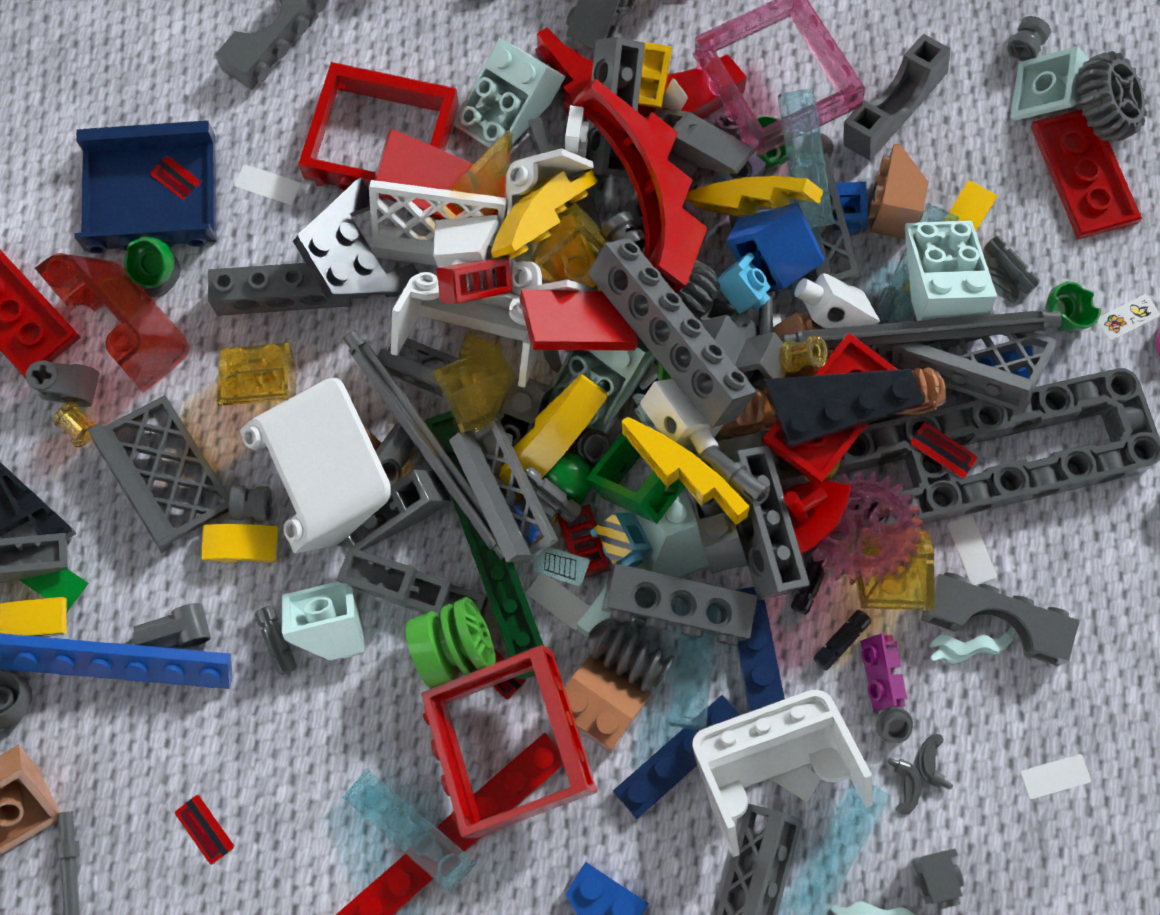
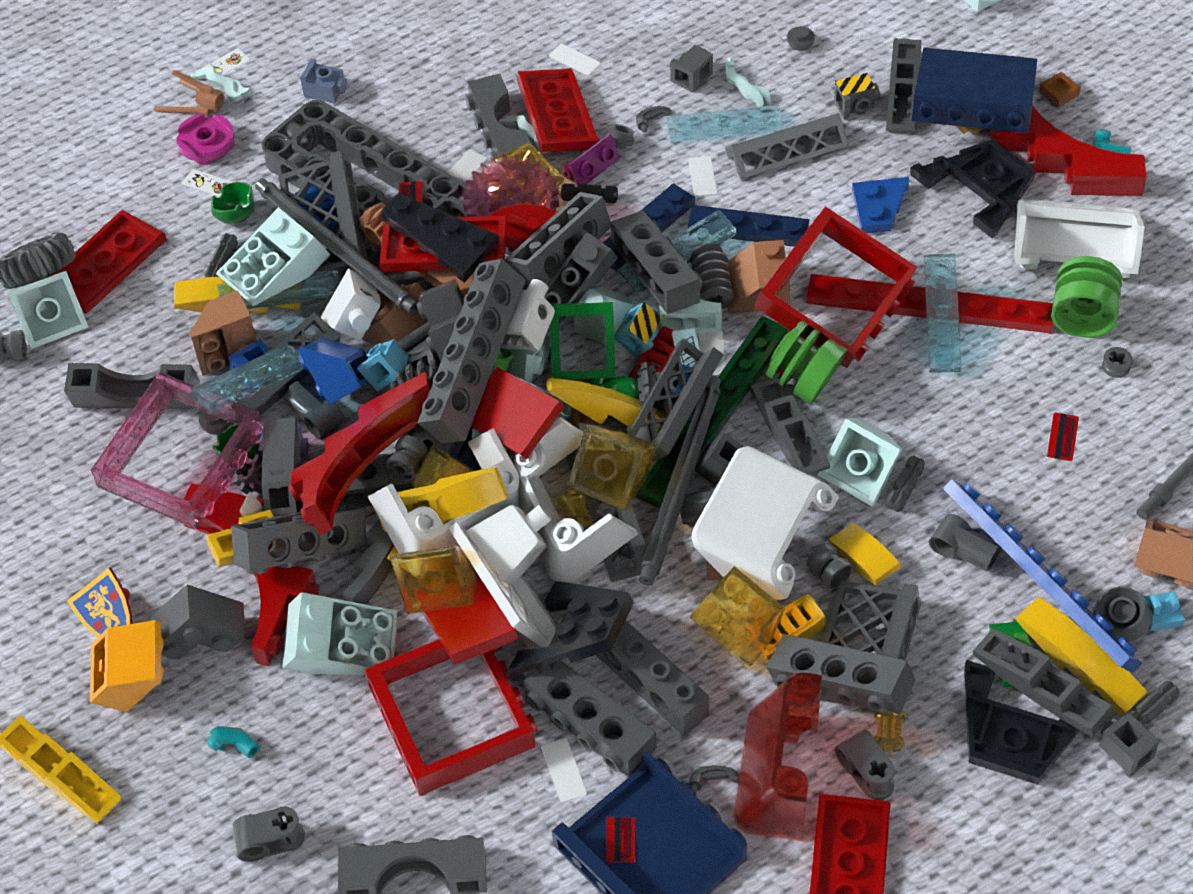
camera: 125 degrees left, 20 degrees down
(124, 425) = (846, 673): none -> dark grey brick
(148, 262) = (714, 774): green hair -> none
(227, 454) = (806, 629): none -> yellow slope
(269, 235) = (592, 734): none -> dark grey brick
(453, 281) = (545, 495): red slope -> none
(576, 132) = (354, 529): white plate -> none
(675, 462) = (570, 282): yellow slope -> none
(736, 476) = (547, 251): dark grey pin -> none
(744, 195) = (310, 410): yellow slope -> none
(773, 743) = (666, 163): white windscreen -> none
(803, 353) = (419, 277): clear yellow bush -> none
(927, 763) = (626, 115): dark grey piece -> none
(978, 686) = (557, 110): none -> red plate

